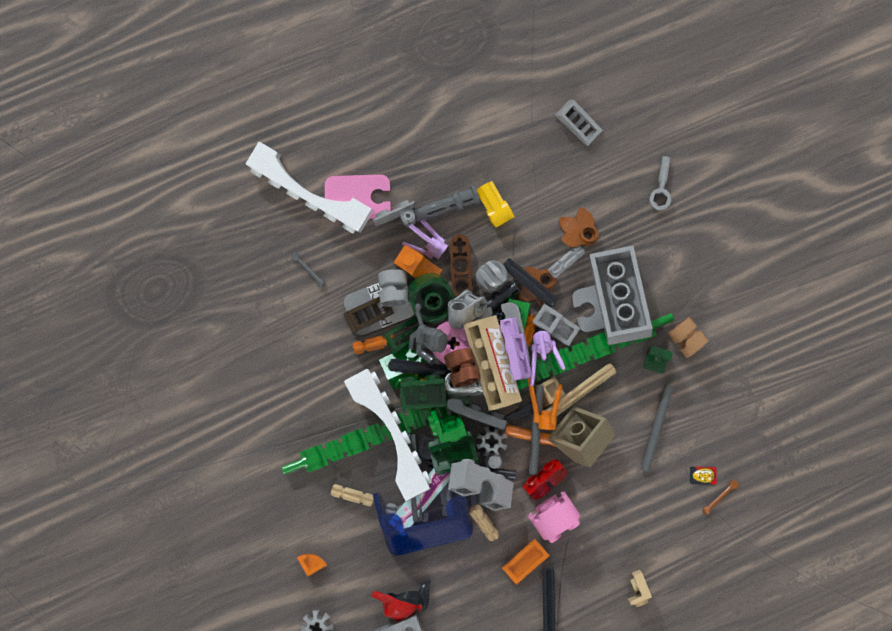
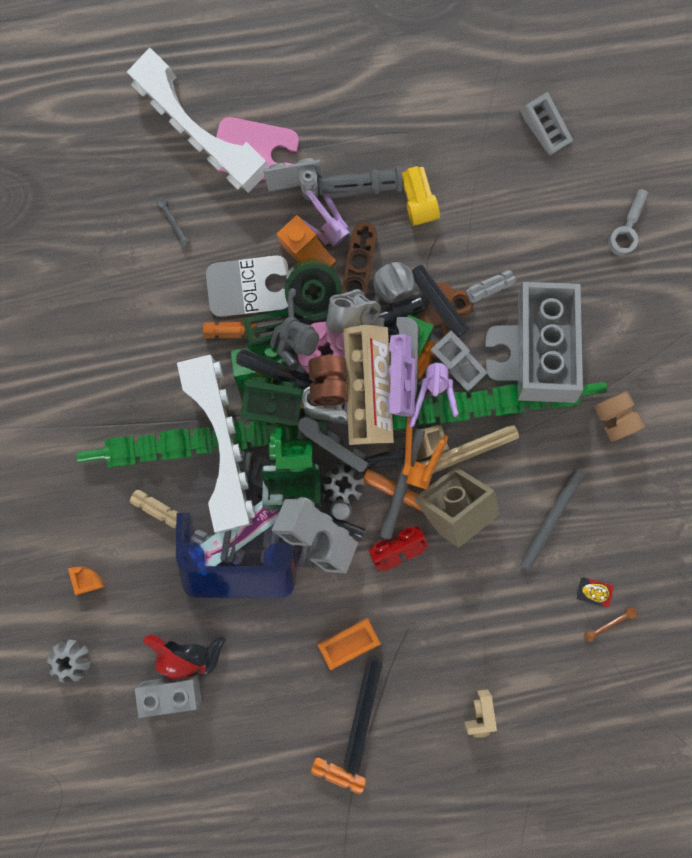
camera: 15 degrees right, 0 degrees up
(354, 327) = (223, 303): dark brown slope -> none
(393, 291) = (269, 263): light grey wheel -> none
(484, 522) = (309, 583): tan axle -> none
(555, 517) = (399, 599): bright pink brick -> none
(576, 228) = (514, 250): dark orange plate -> none
(657, 359) = (574, 433): dark green bracket -> none

